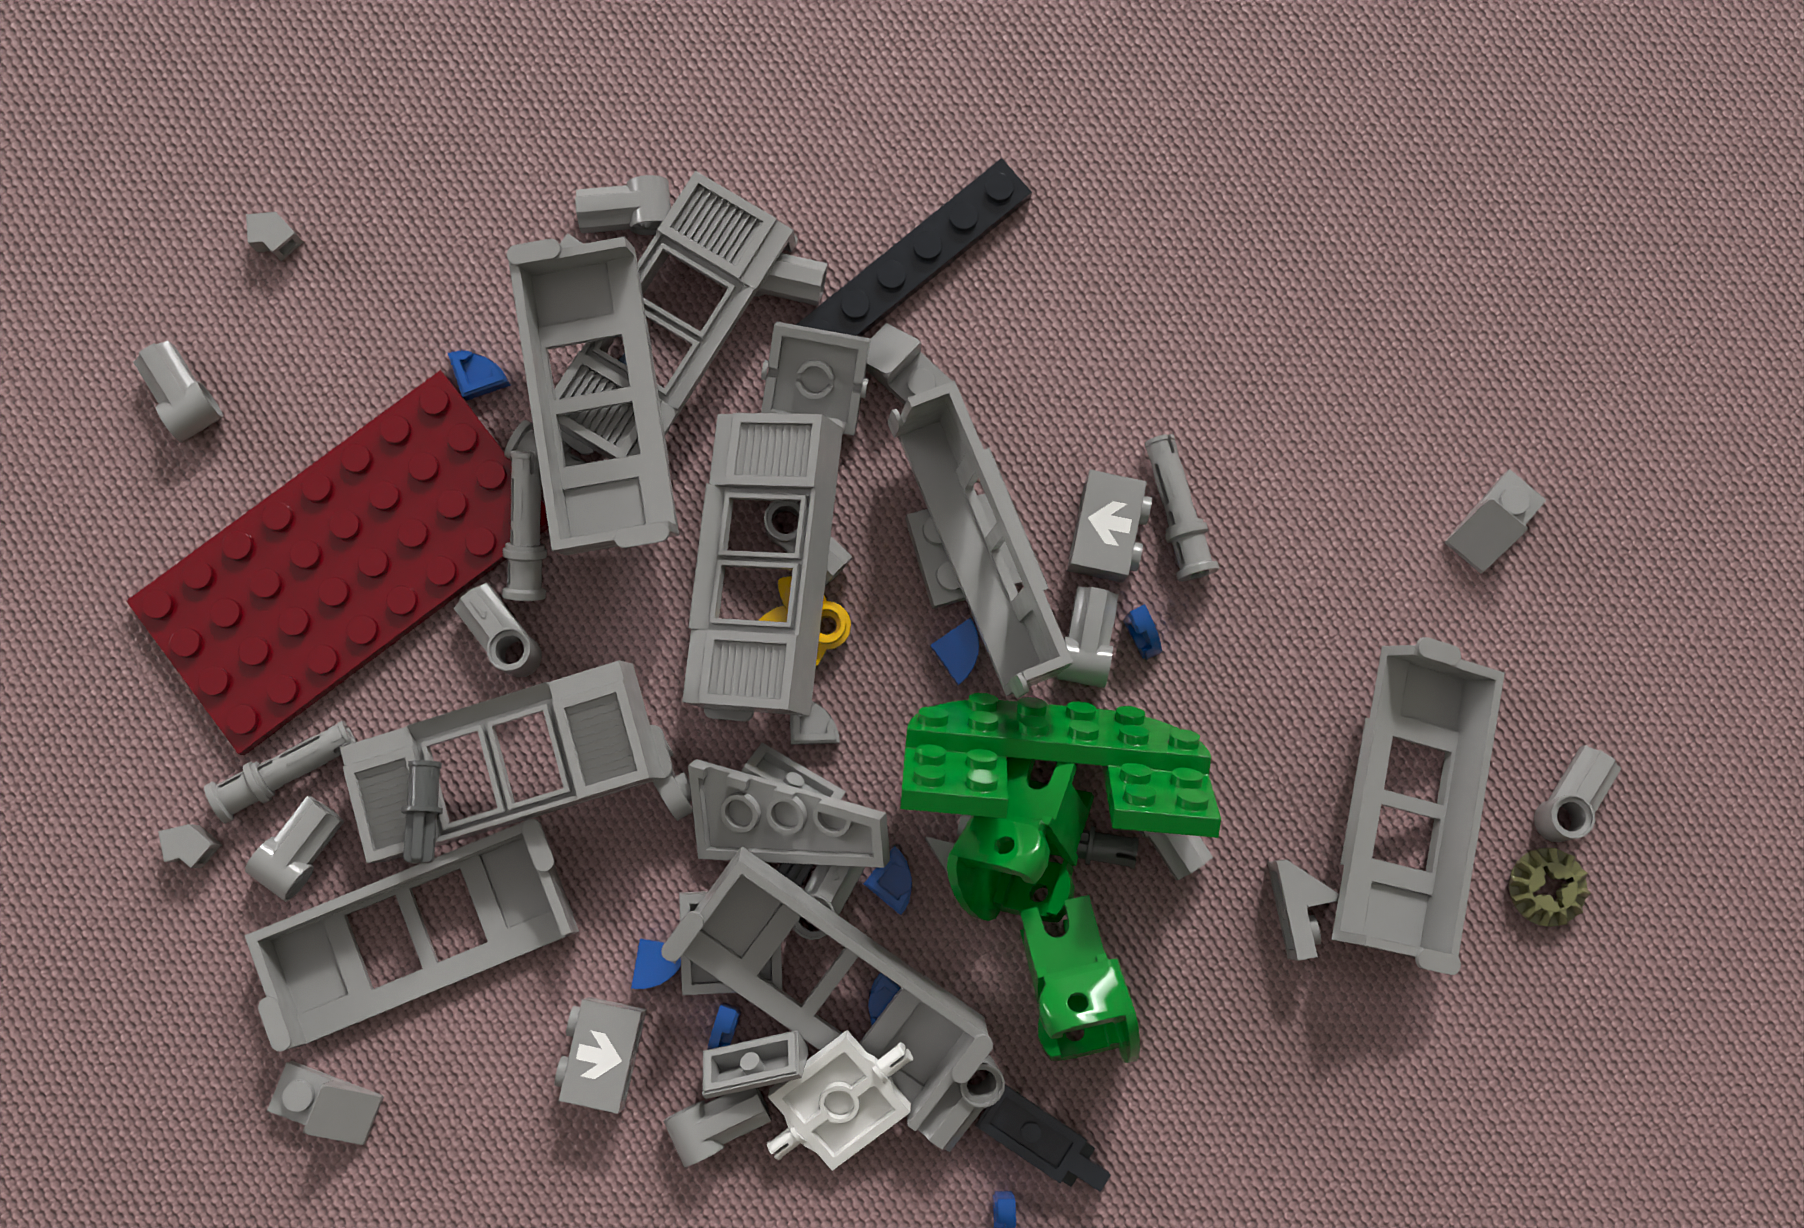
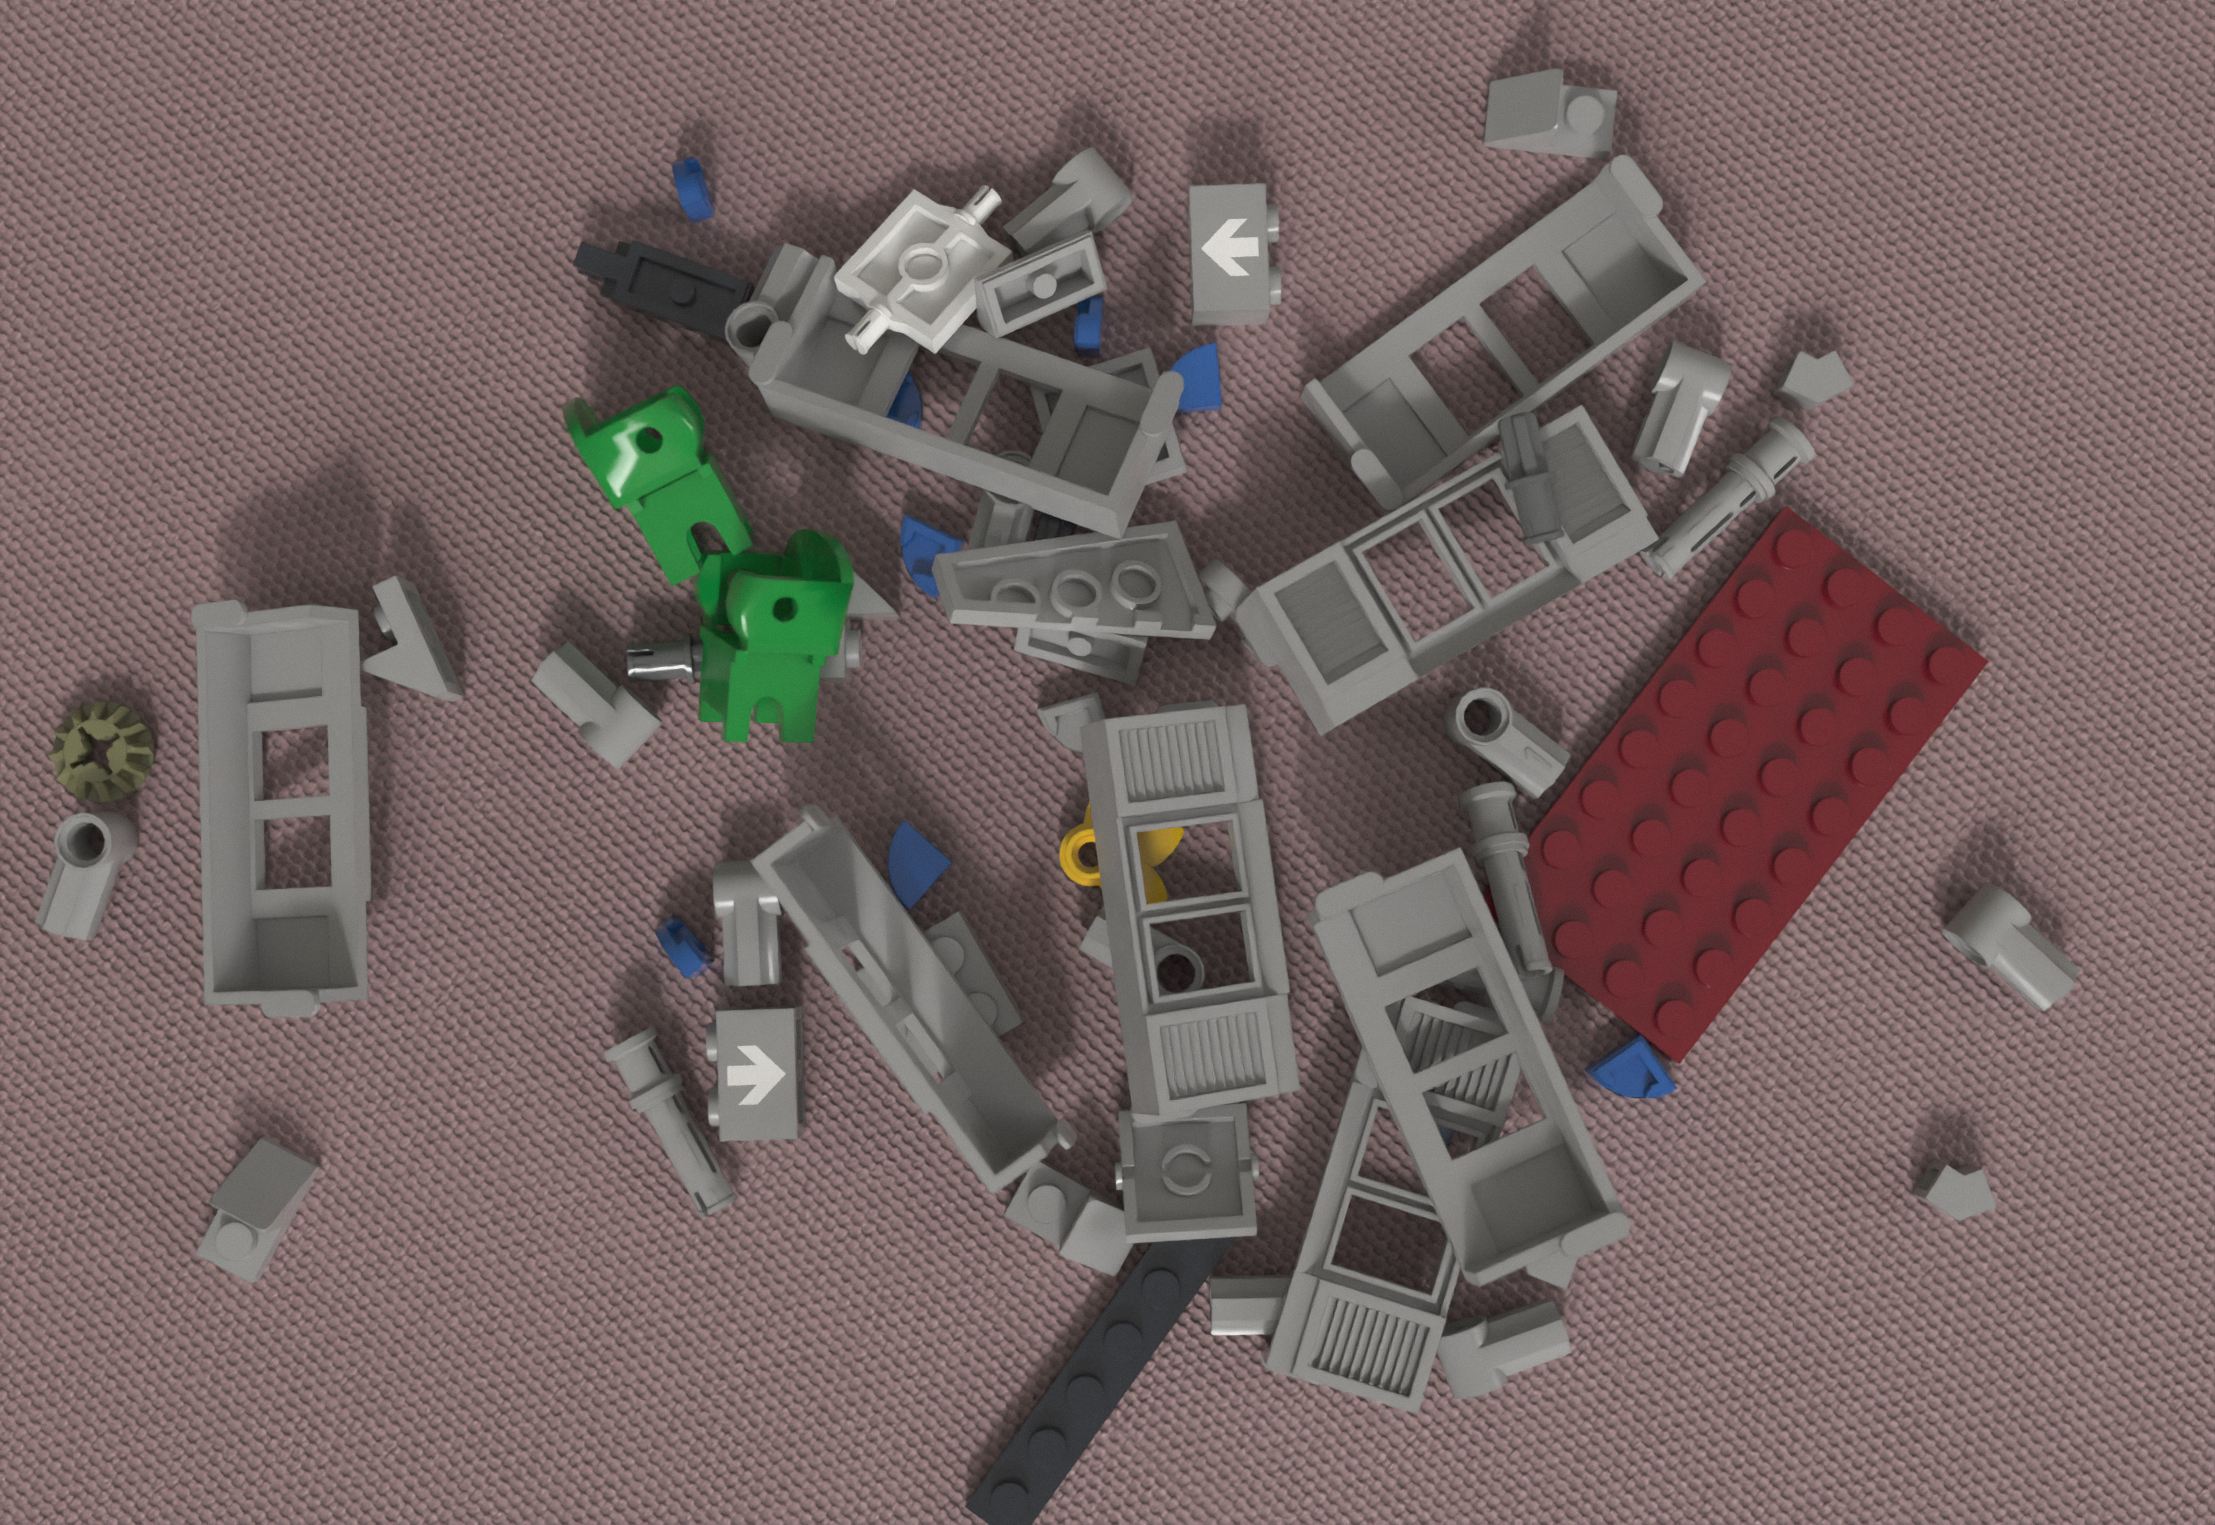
camera: 175 degrees right, 5 degrees up
(1150, 768) = (630, 769): green plate -> none

